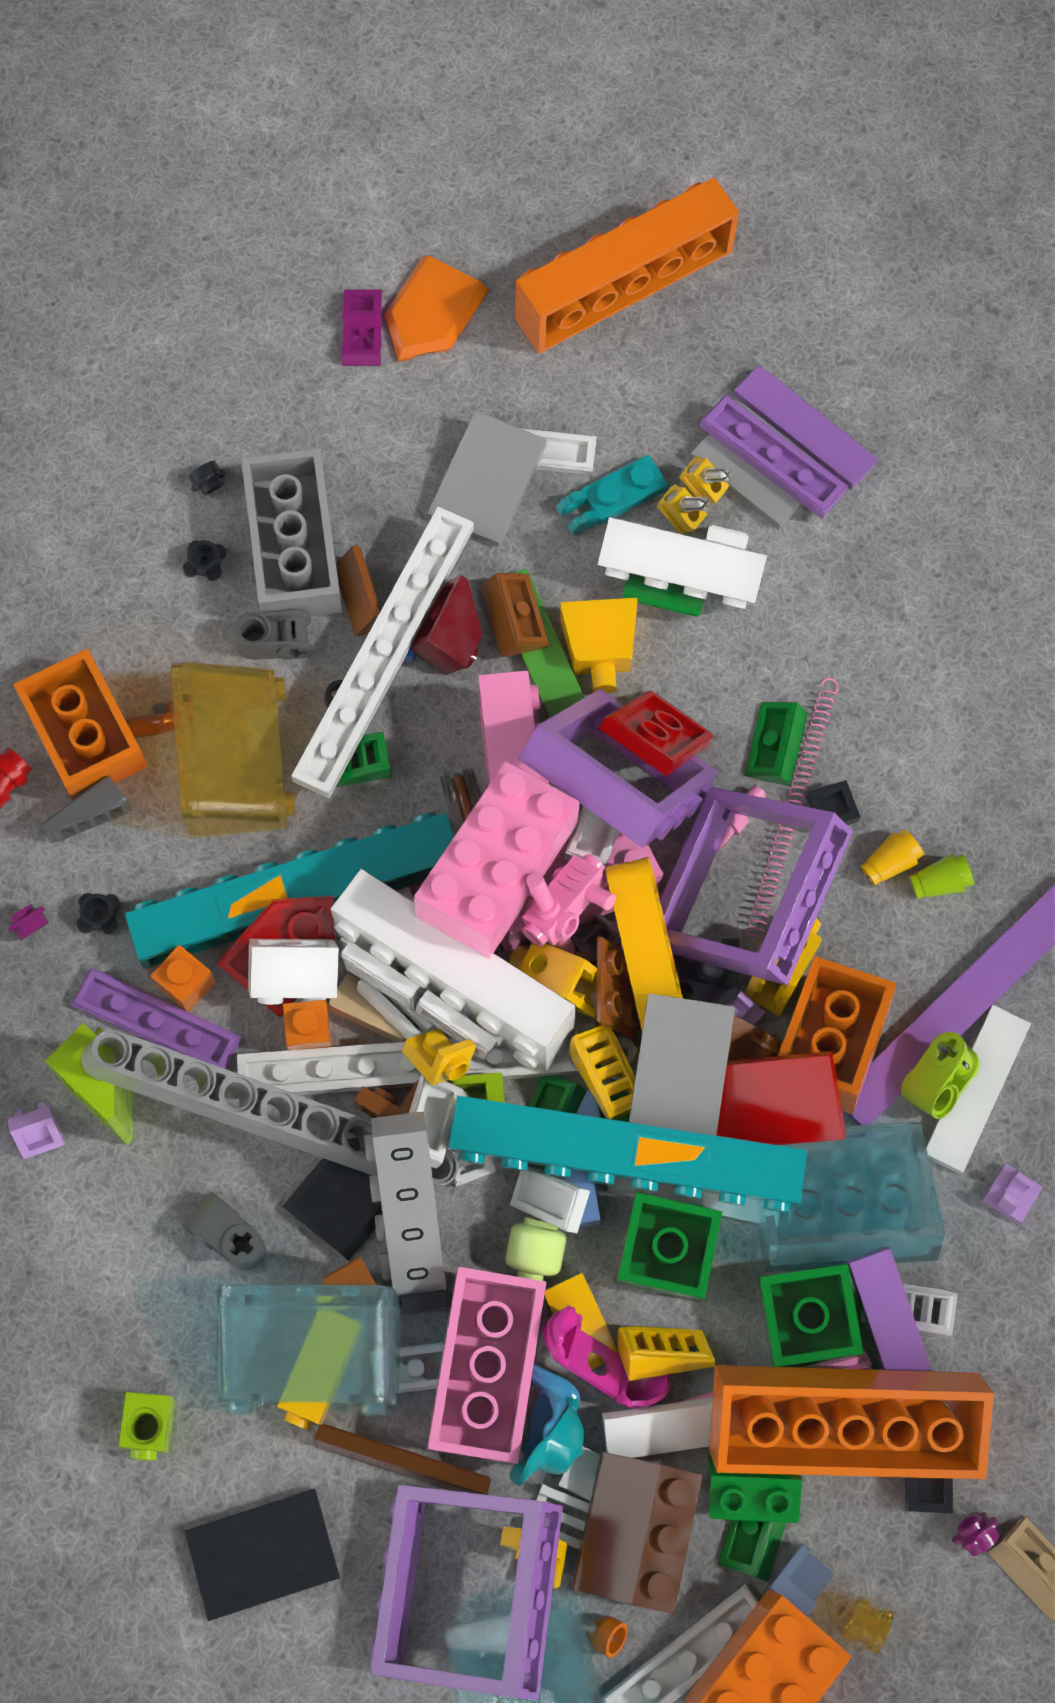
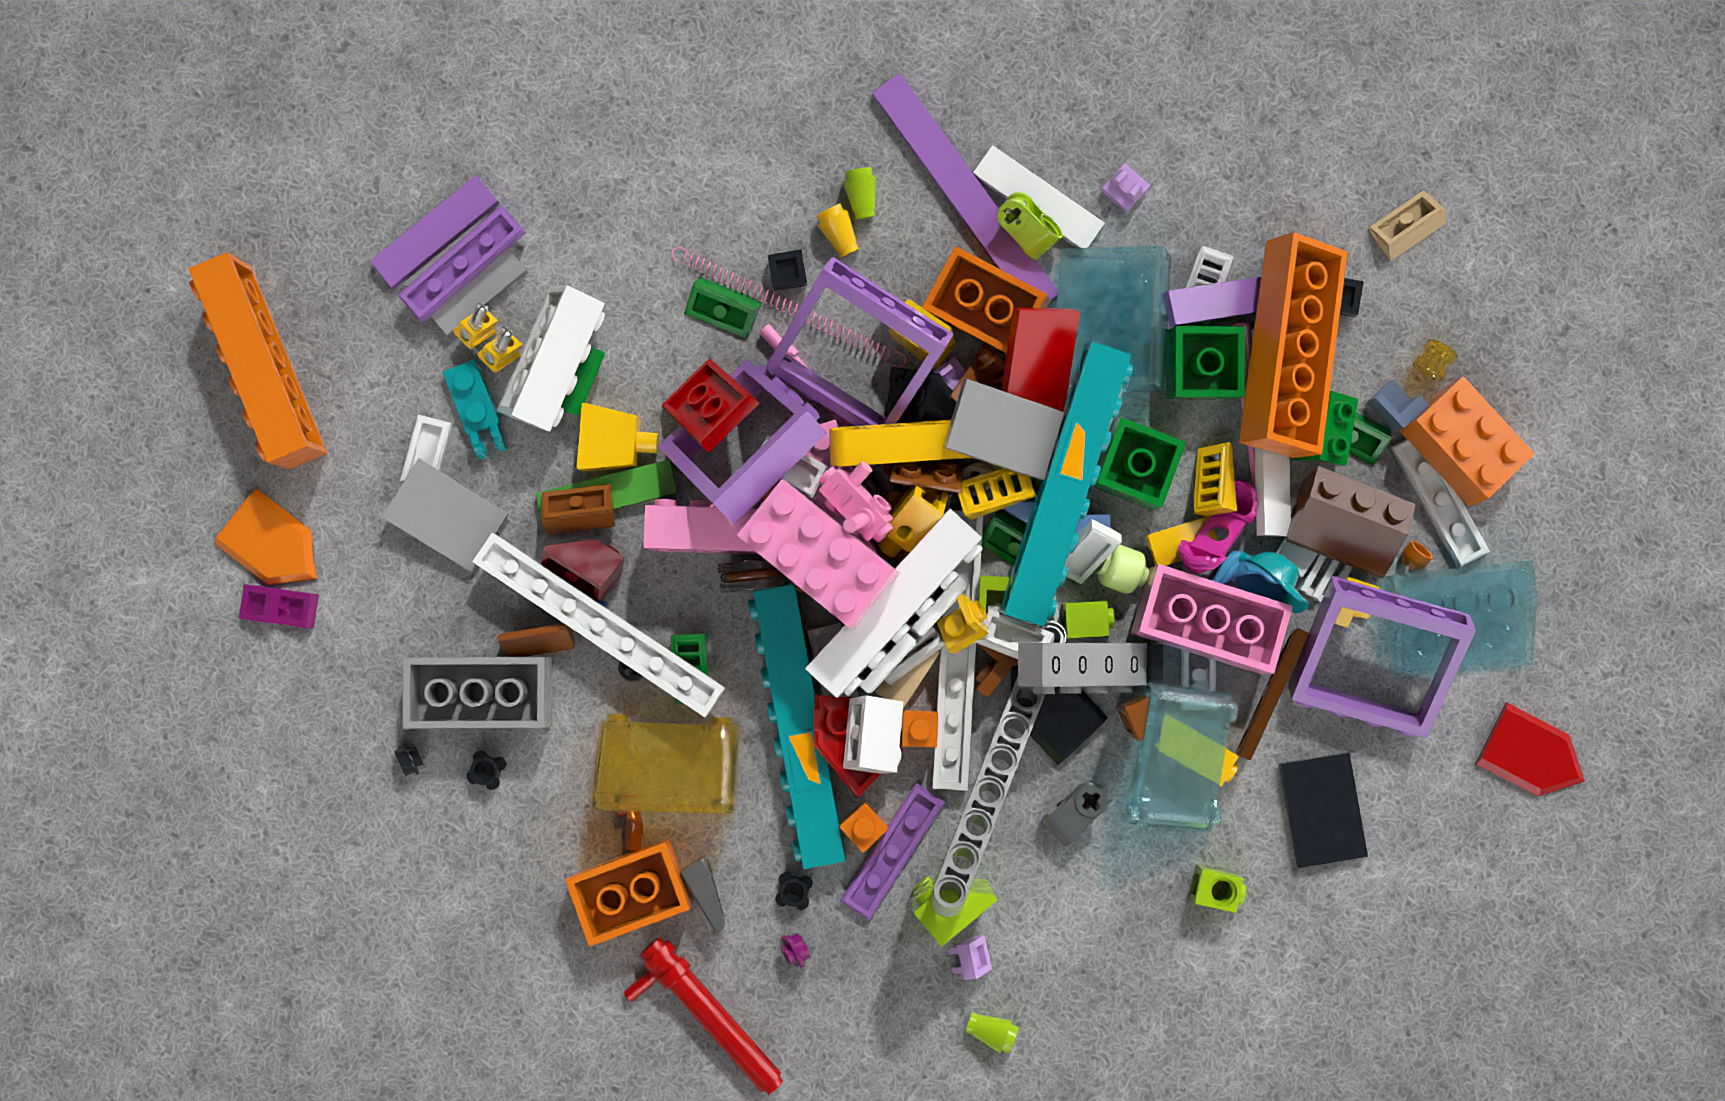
camera: 75 degrees left, 15 degrees up
(276, 633) = (567, 714): dark grey piece -> none
(466, 1214) = (1087, 619): none -> lime brick
(727, 537) = (537, 316): white tile -> none
(977, 1533) = (1379, 266): magenta plate -> none

